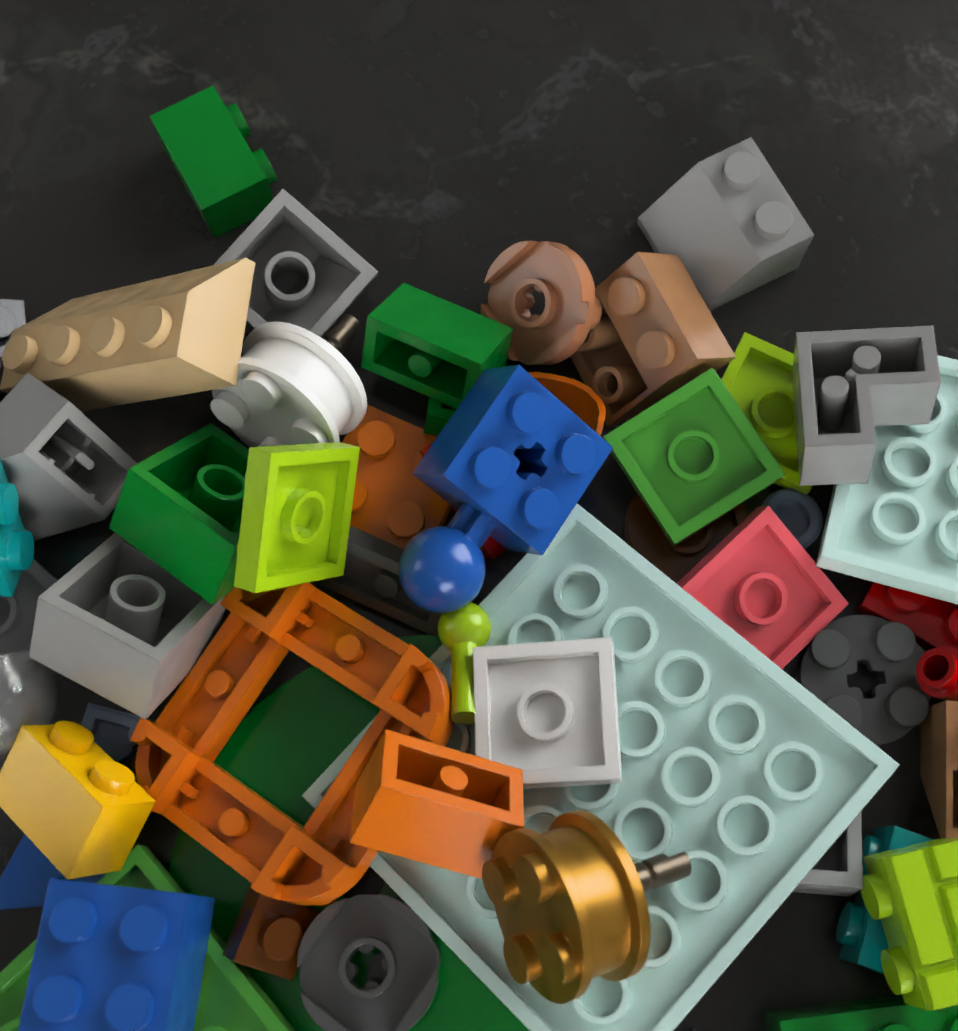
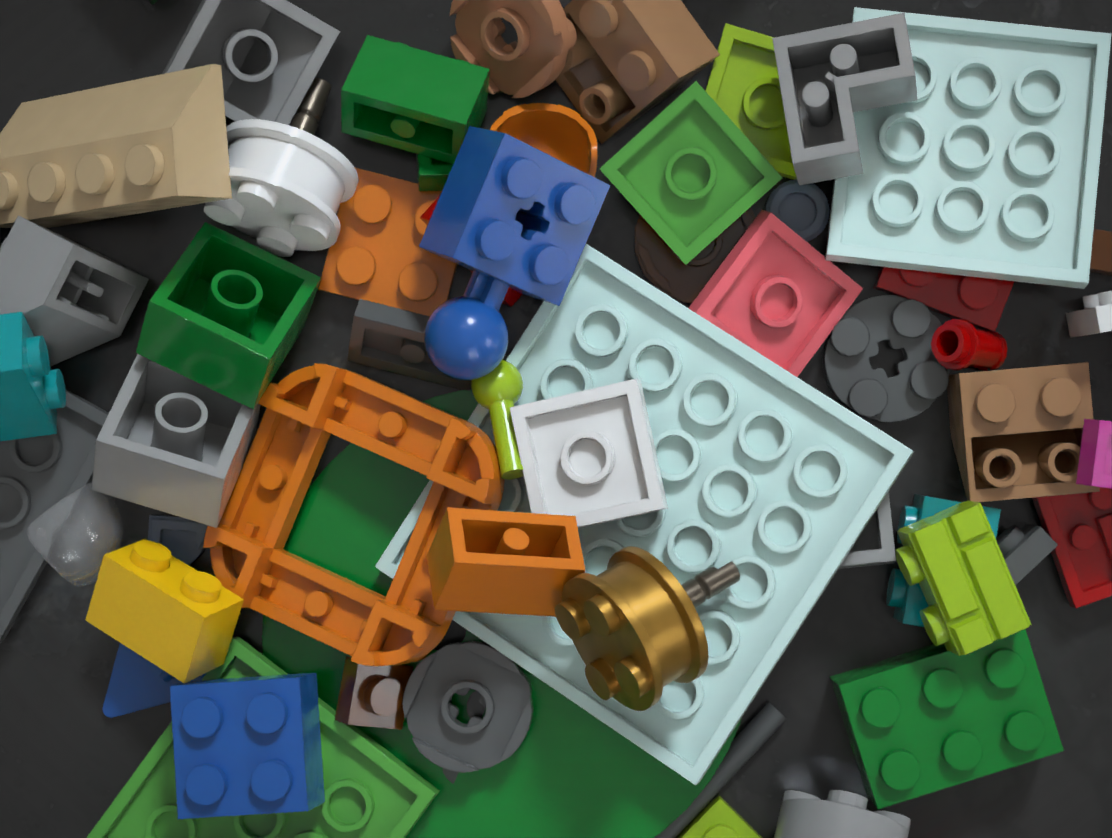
camera: 15 degrees left, 15 degrees up
(295, 514) = (318, 314): lime plate -> none

